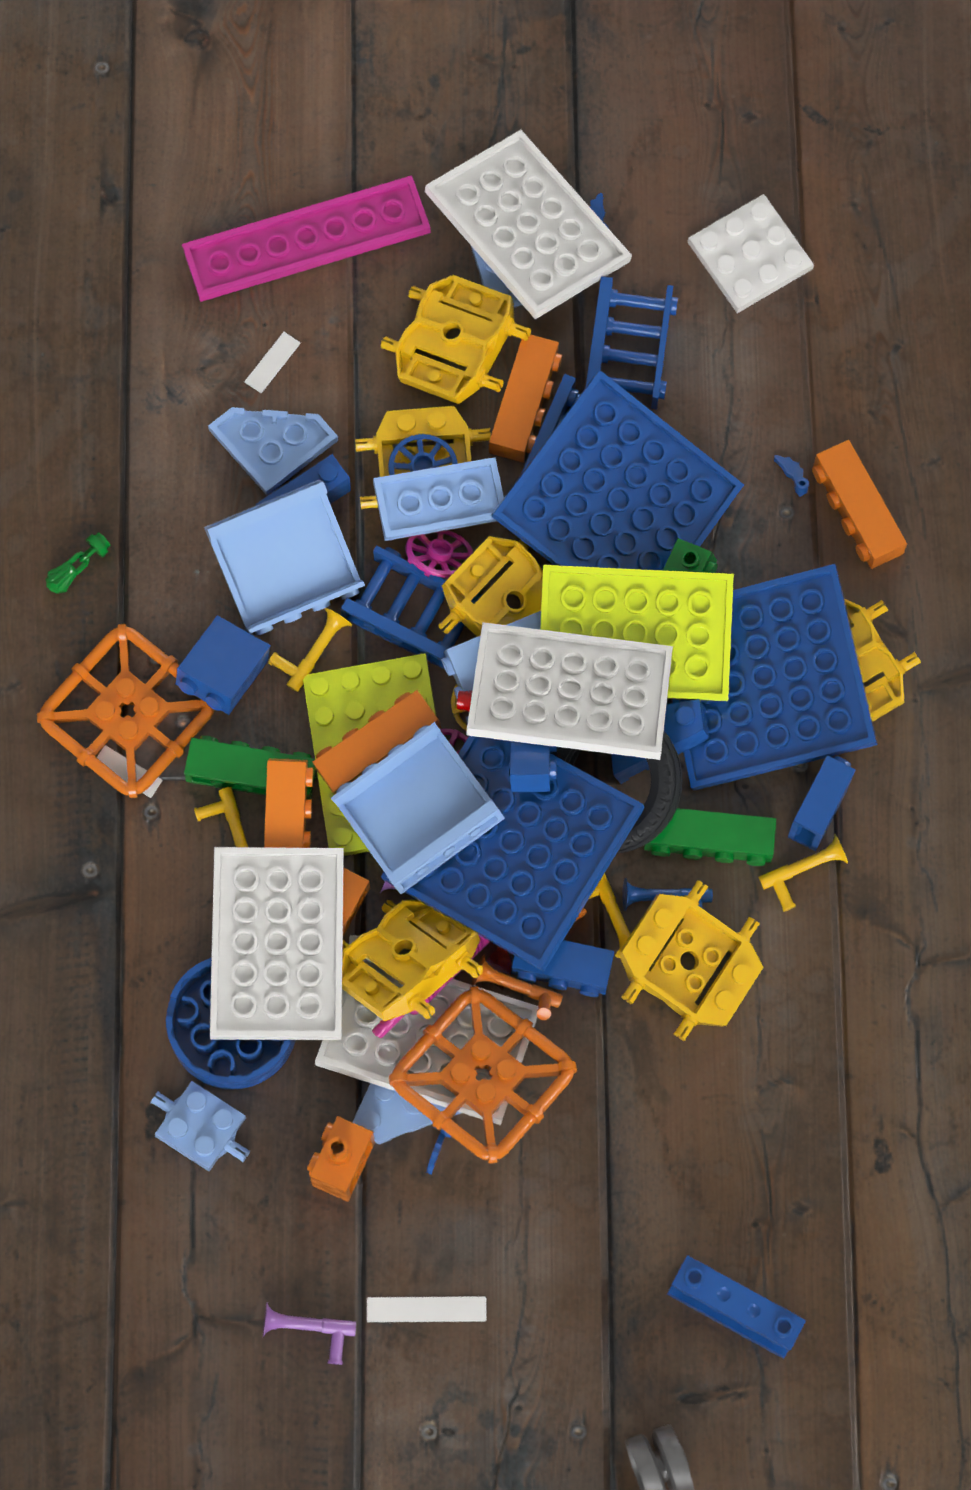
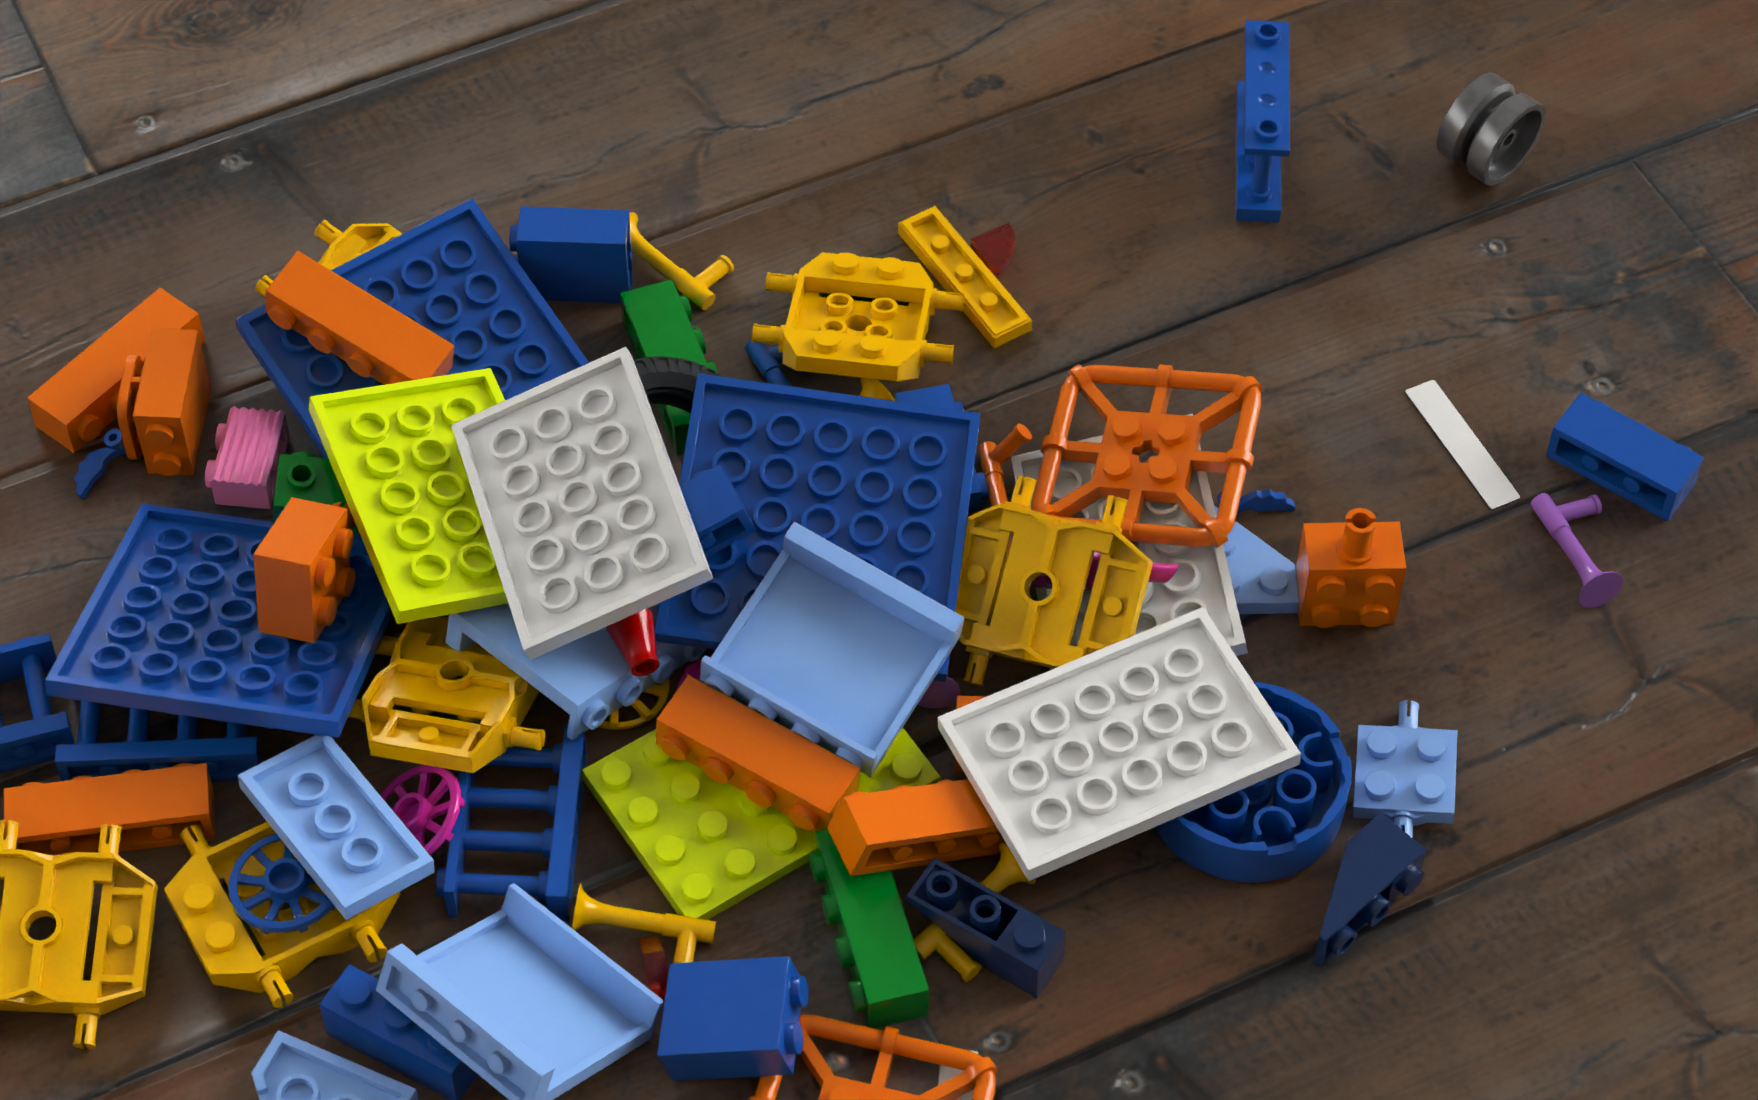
camera: 115 degrees left, 20 degrees down
(141, 1061) = (1372, 873): none -> dark blue slope
(211, 828) = (990, 927): none -> dark blue slope
(287, 643) = (654, 964): none -> clear red tile
(358, 1400) = (1624, 456): none -> blue brick
(614, 534) = (304, 569): none -> orange brick
(710, 1056) = (962, 271): none -> yellow tile
(723, 1087) = (995, 248): none -> clear red tile
(751, 555) = (247, 457): none -> bright pink brick
(791, 631) = (354, 324): none -> orange brick
(806, 515) = (165, 402): none -> orange brick

